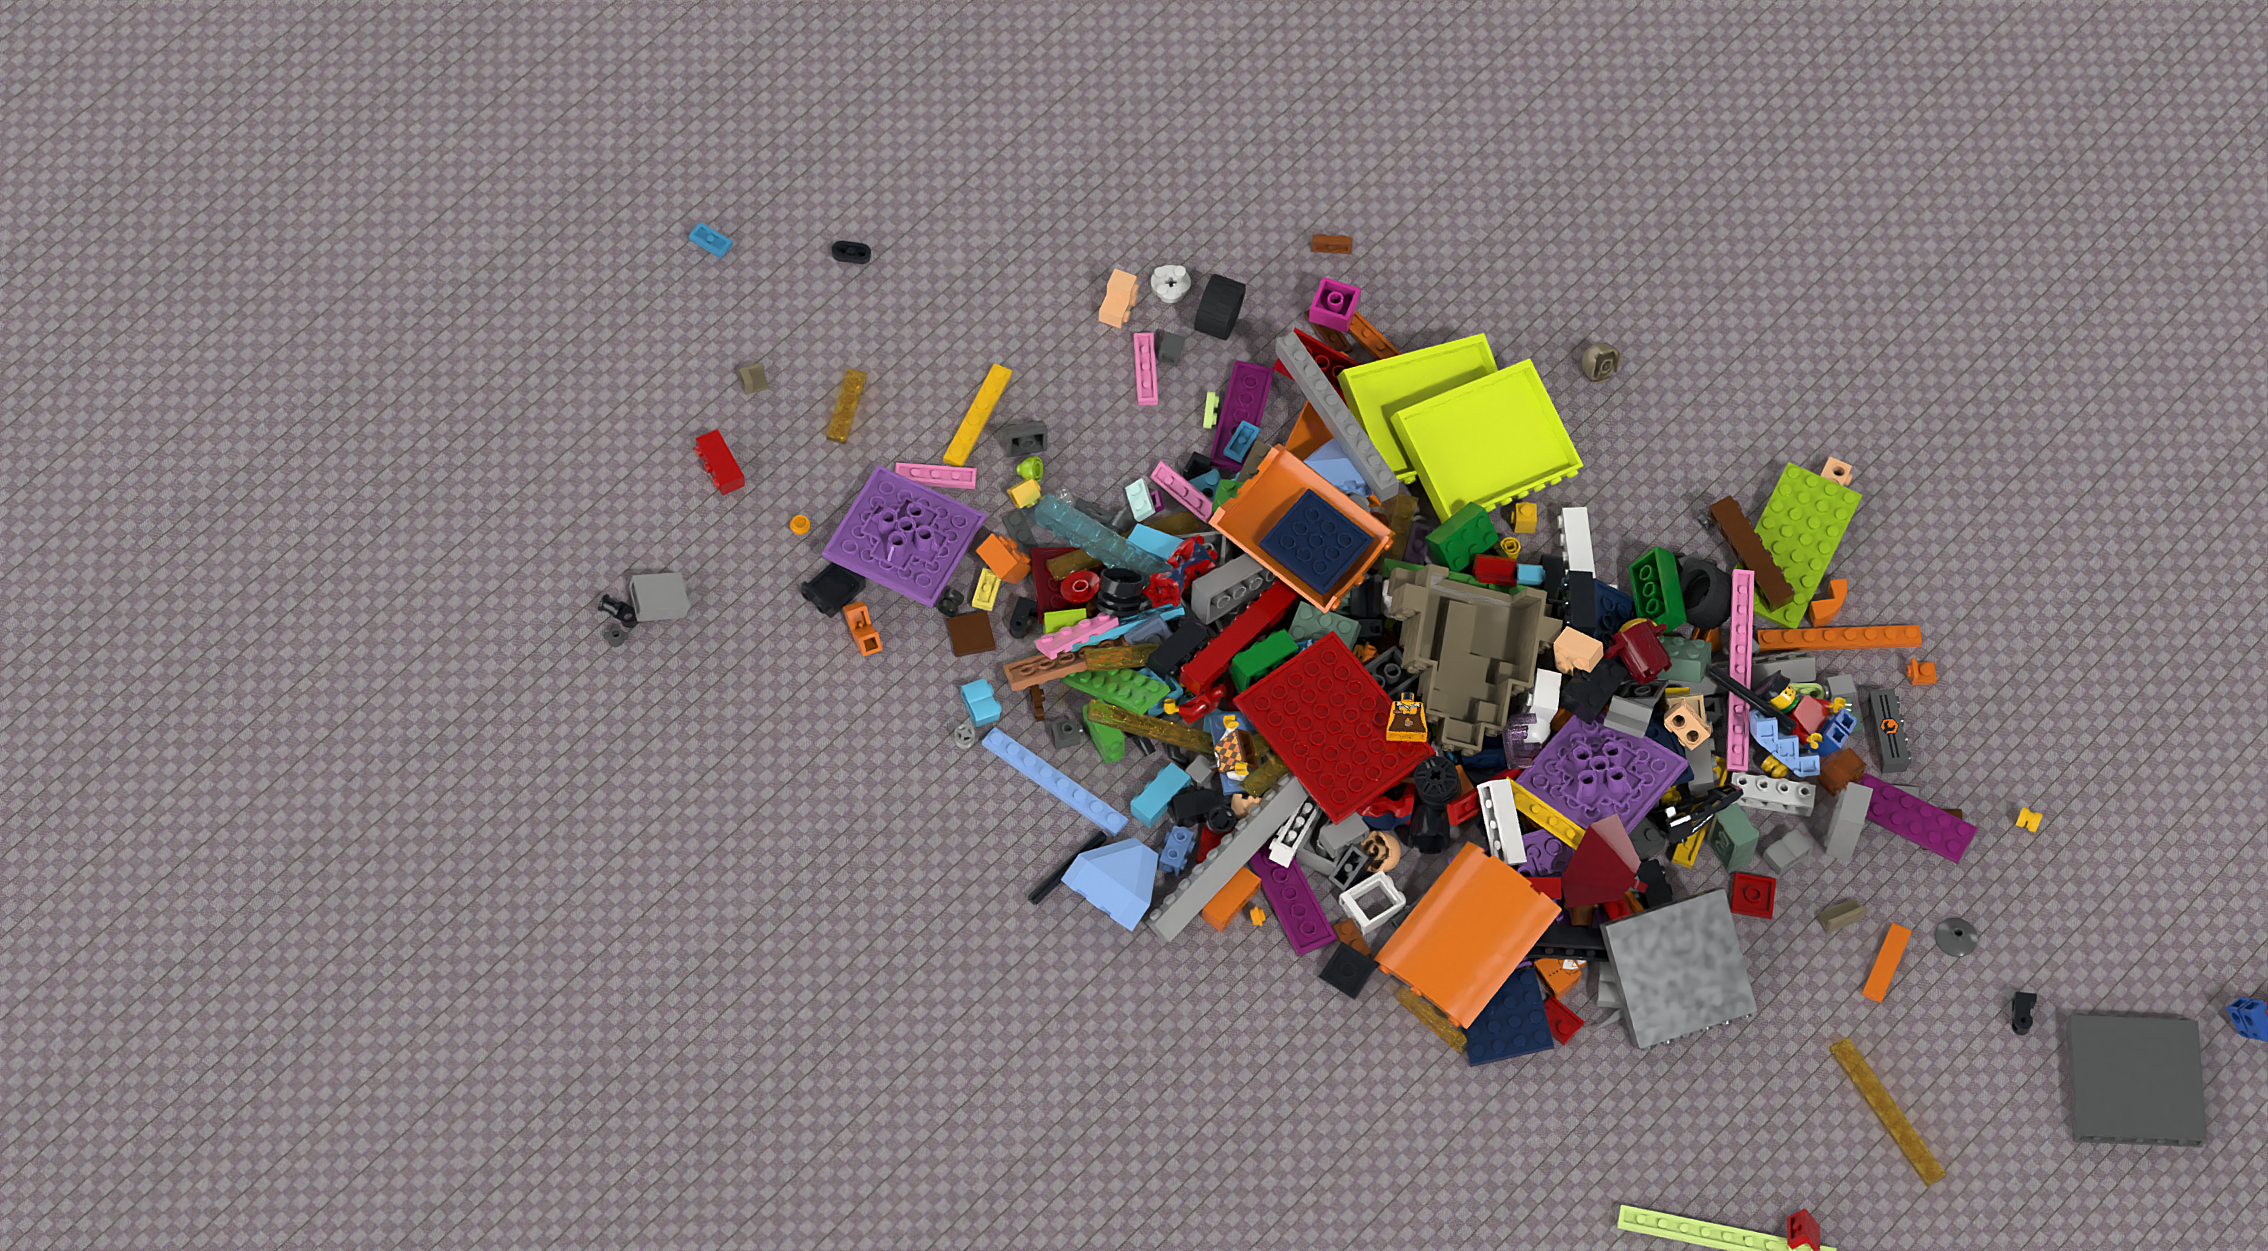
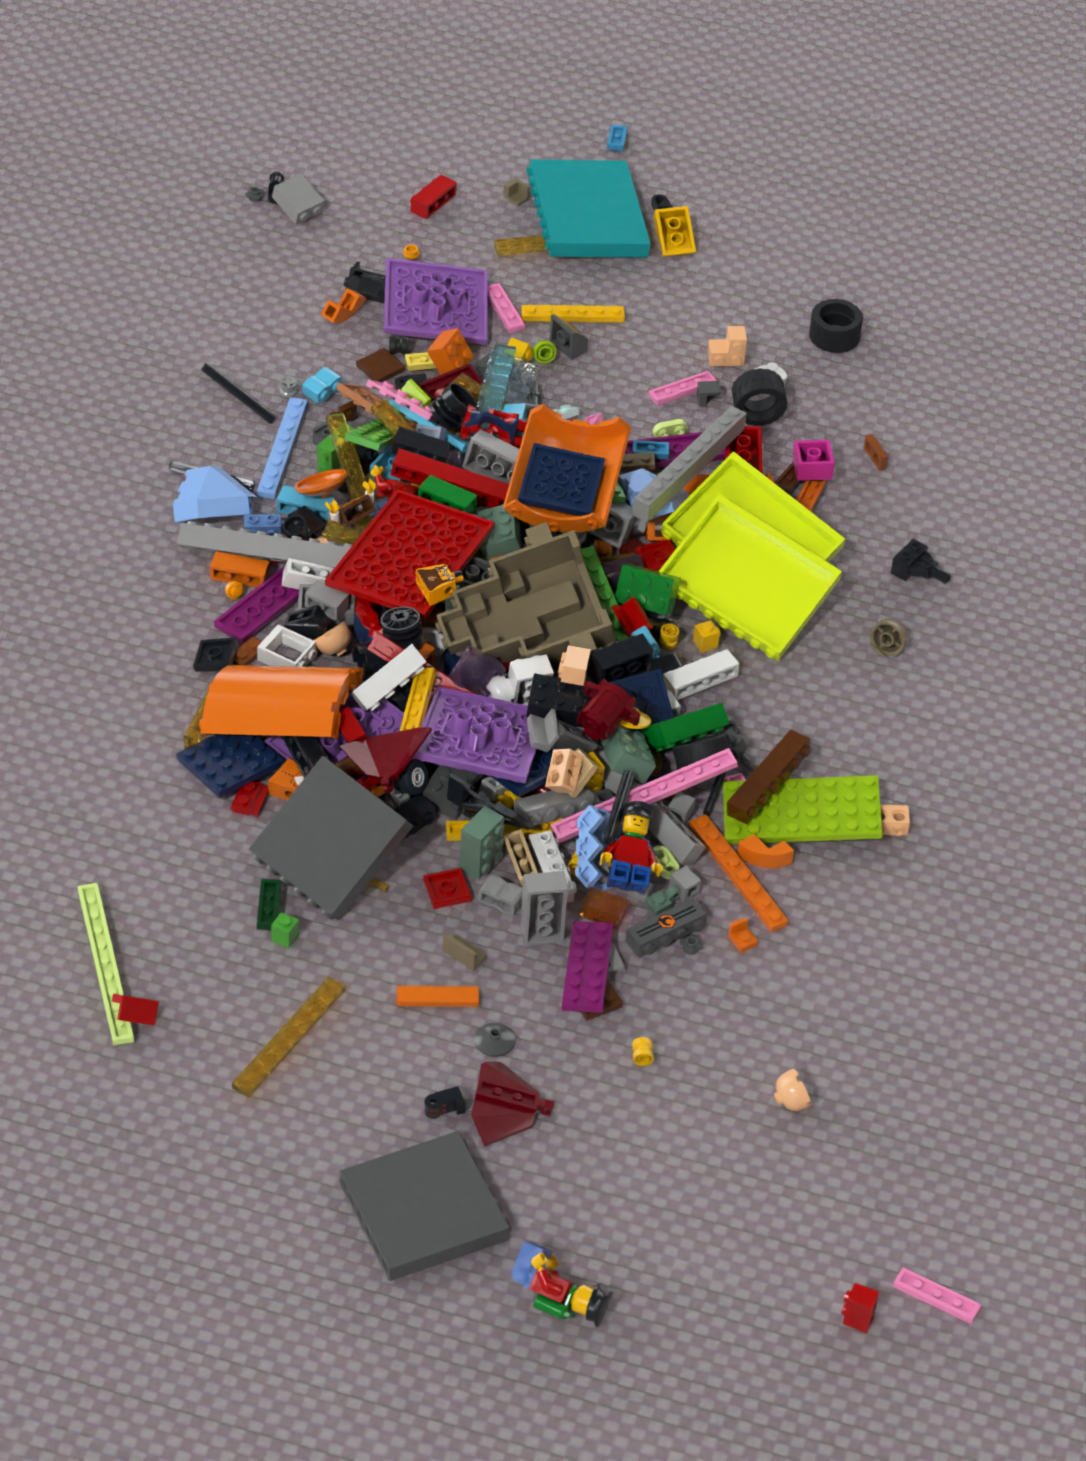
camera: 65 degrees right, 15 degrees down
(823, 322) = (588, 208): none -> teal panel
(901, 260) = (674, 231): none -> yellow slope
(948, 789) = (238, 393): none -> black axle
(1132, 166) = (835, 338): none -> black tyre
(1155, 759) = (321, 483): none -> orange dish
(1409, 507) = (655, 554): none -> red tile
(1509, 287) = (916, 561): none -> black brick
(1711, 1061) = (268, 903): none -> dark green plate
(1755, 1060) = (284, 930): none -> bright green brick
(1767, 815) = (519, 854): none -> tan brick
(1913, 724) = (691, 944): none -> dark grey plate
(2042, 958) = (504, 1103): none -> dark red panel
(2129, 720) = (791, 1092): none -> light nougat cylinder

